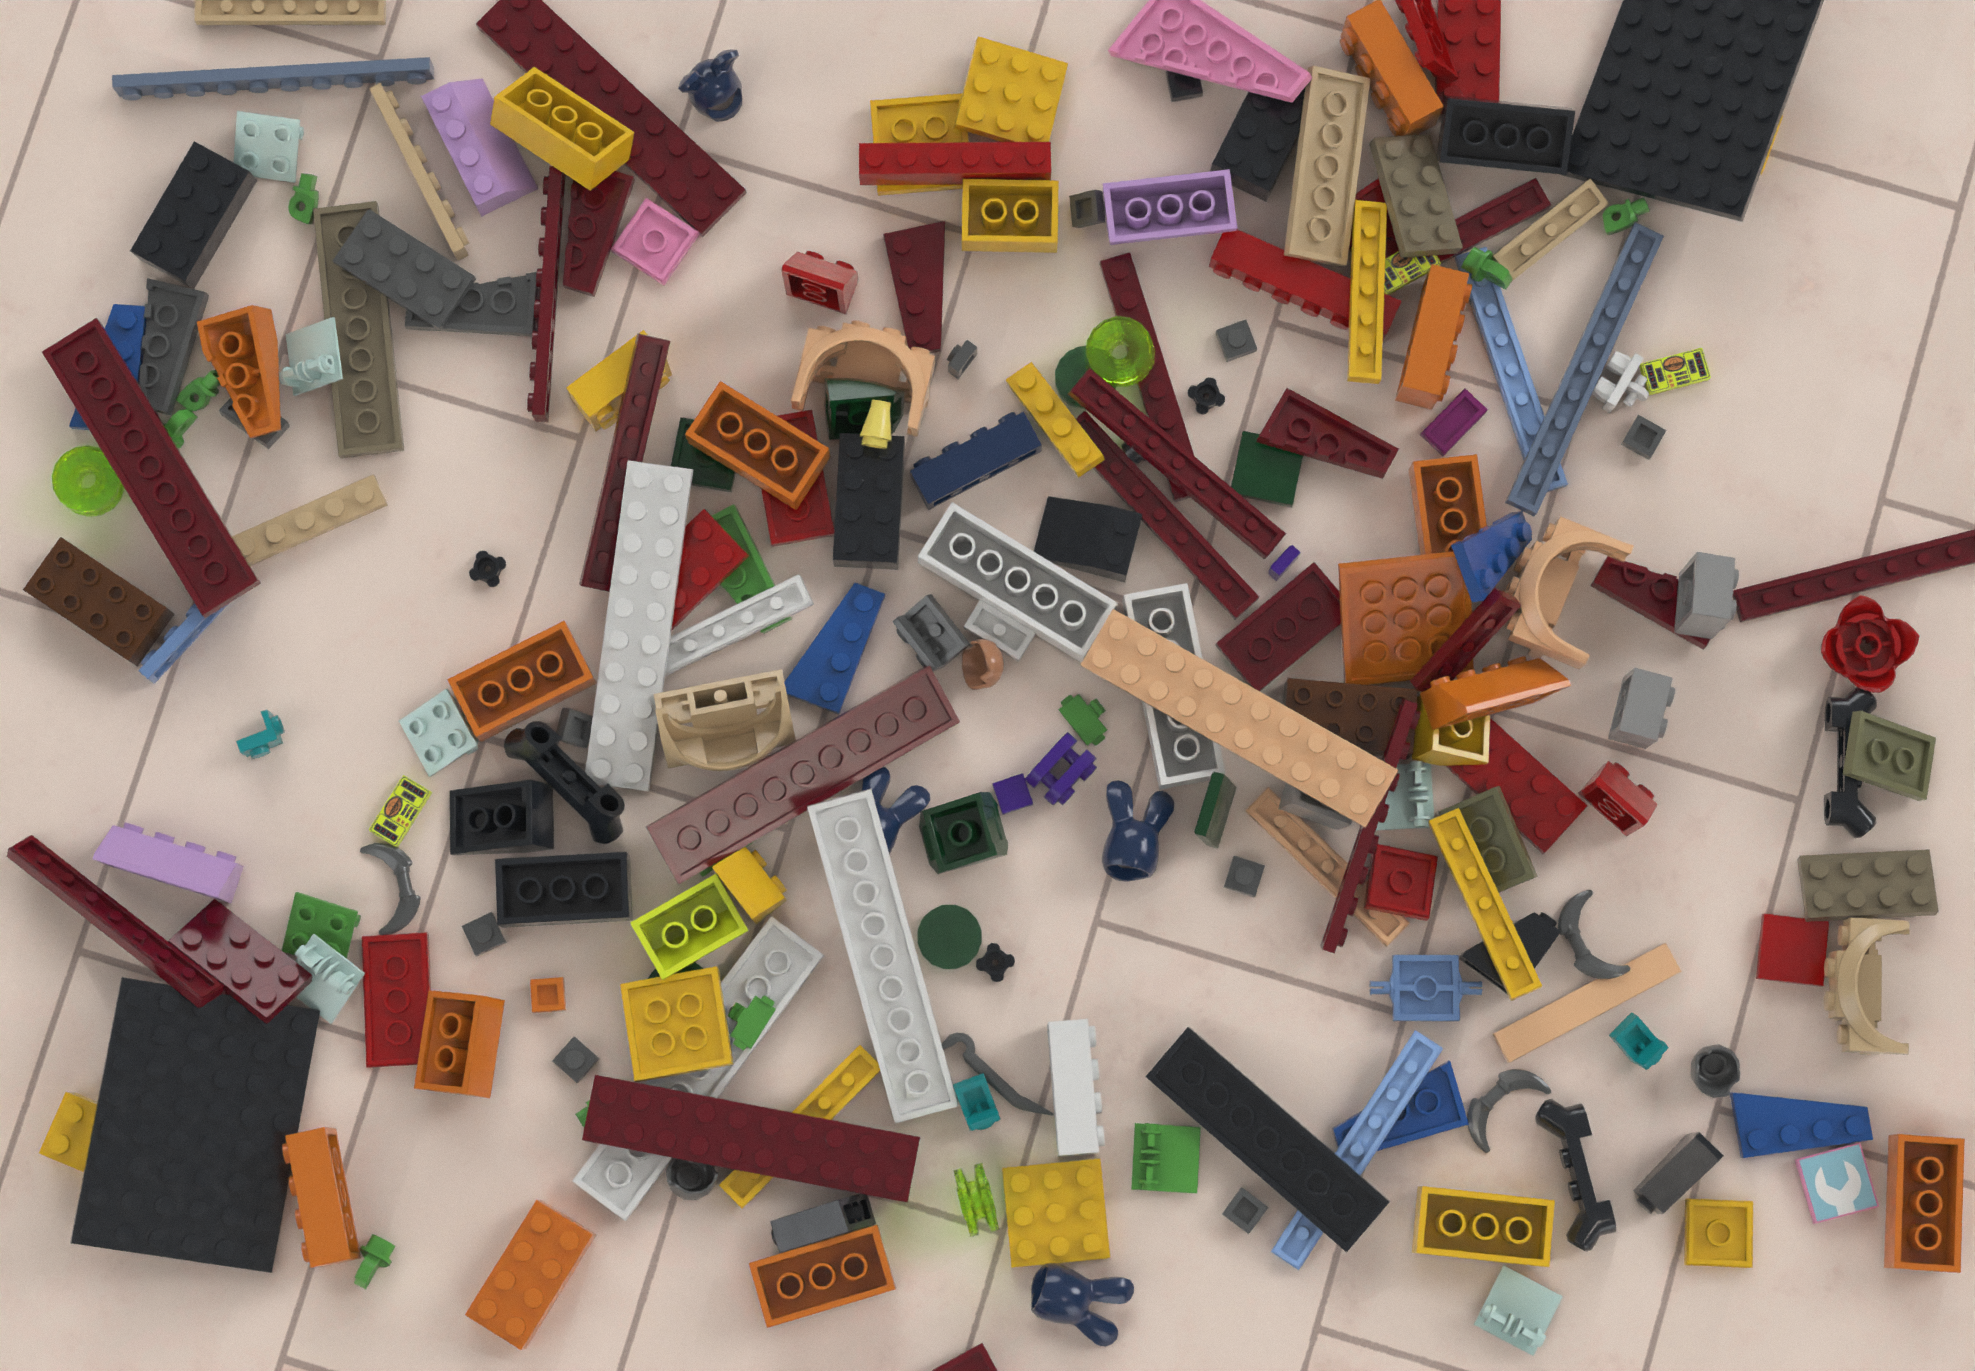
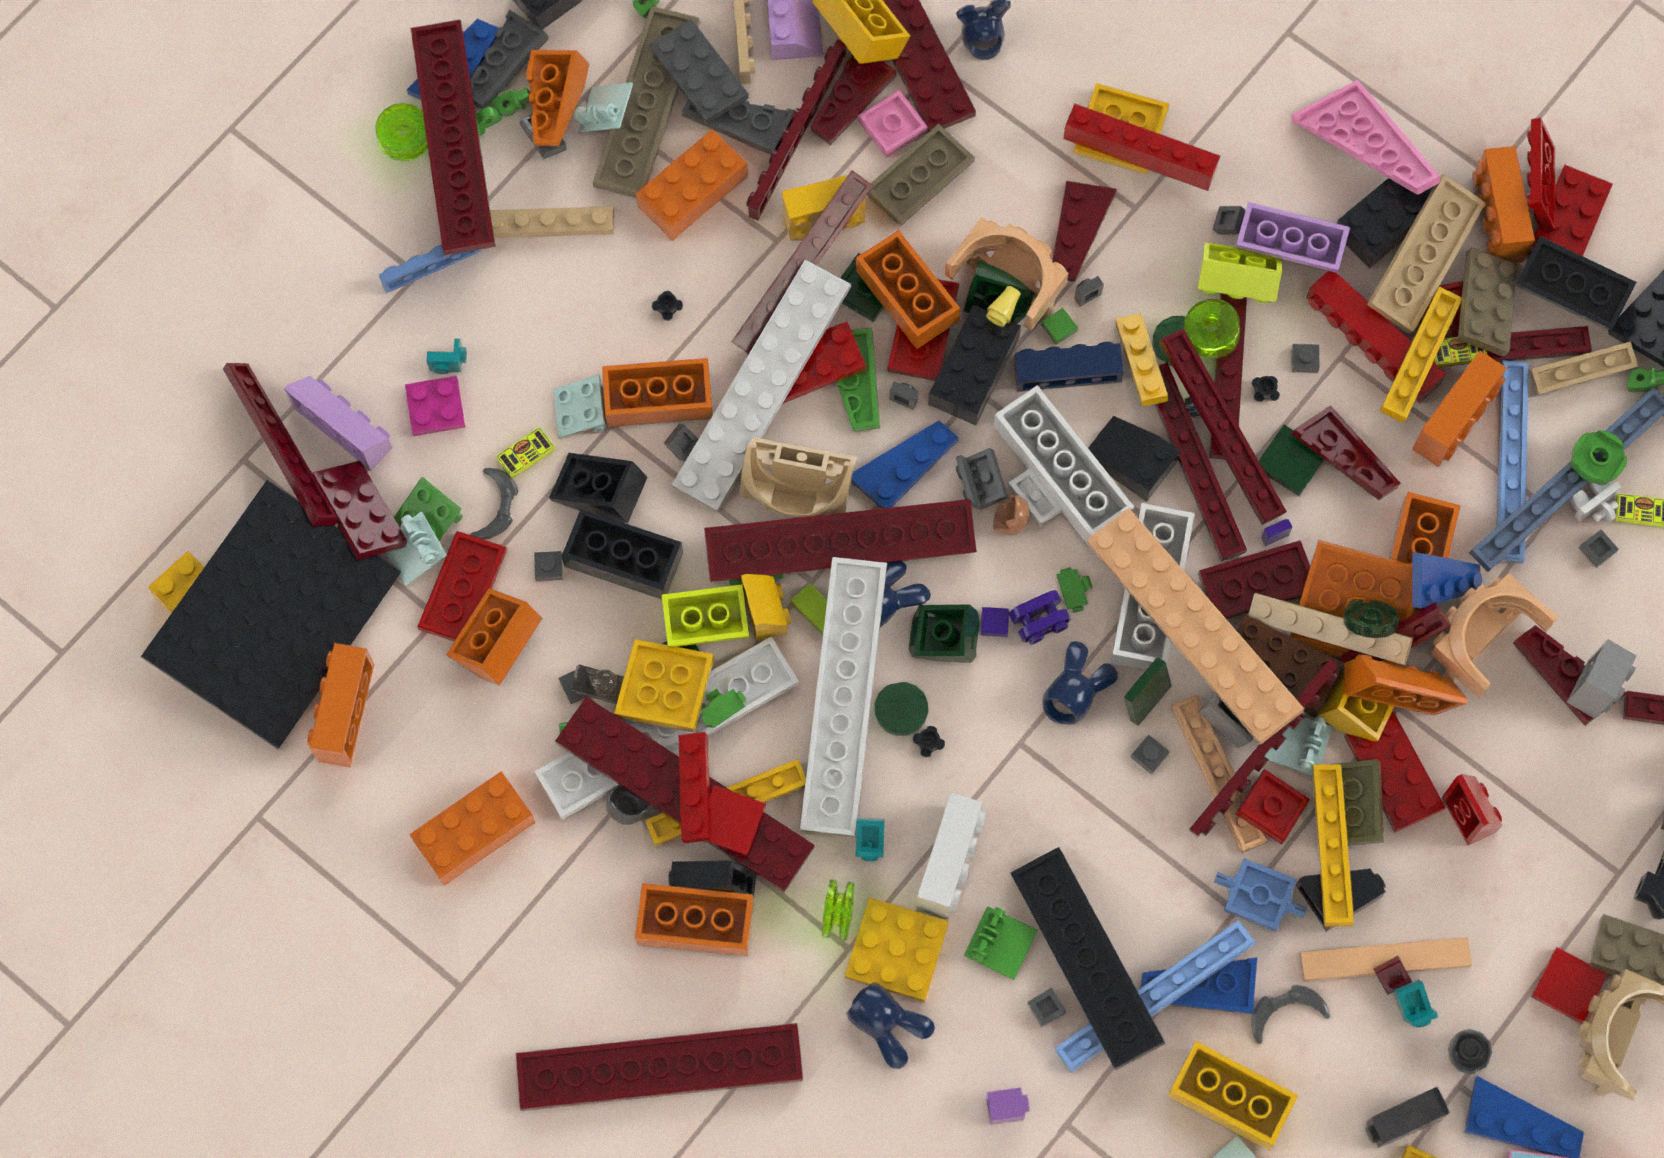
camera: 25 degrees right, 10 degrees down
(98, 601) = (372, 217): reddish brown brick -> none
(271, 797) = (435, 405): none -> dark pink plate
(376, 1255) = (361, 768): bright green piece -> none
(455, 412) = (692, 184): none -> orange brick
(548, 995) = (576, 628): orange plate -> none
(597, 805) = (674, 502): black plate -> none
(600, 1051) = (597, 683): none -> clear smoke tile
(712, 293) = (920, 174): none -> dark tan plate
(737, 623) = (836, 413): white tile -> none
(762, 1132) = (694, 787): none -> red plate
(802, 859) = (811, 606): none -> lime tile
(803, 566) = (904, 394): none -> dark grey plate
(816, 1151) = (734, 820): none -> red tile
(820, 281) = (1003, 194): red slope -> none
(945, 413) = (1059, 326): none -> bright green tile
(991, 1076) = (890, 827): dark grey piece -> none
(1010, 93) = (1204, 115): yellow plate -> none
(1010, 215) = (1167, 201): yellow brick -> none
(1125, 273) = (1239, 273): none -> neon yellow slope
(1183, 87) = (1339, 161): black plate -> none
(1246, 1337) = (1007, 1105): none -> medium lavender brick
(1388, 658) = (1326, 628): none -> tan plate
(1431, 633) = (1371, 619): none -> clear green tile
(1453, 422) = (1452, 481): magenta tile -> none
(1482, 266) = (1520, 374): bright green piece -> none
(1585, 961) = (1396, 925): dark grey piece -> none
(1594, 1217) = (1326, 1126): black plate -> none
(1601, 1019) = (1392, 975): none -> dark red tile
(1621, 323) = (1588, 467): none -> bright green plate
(1641, 708) = (1518, 746): light grey brick -> none

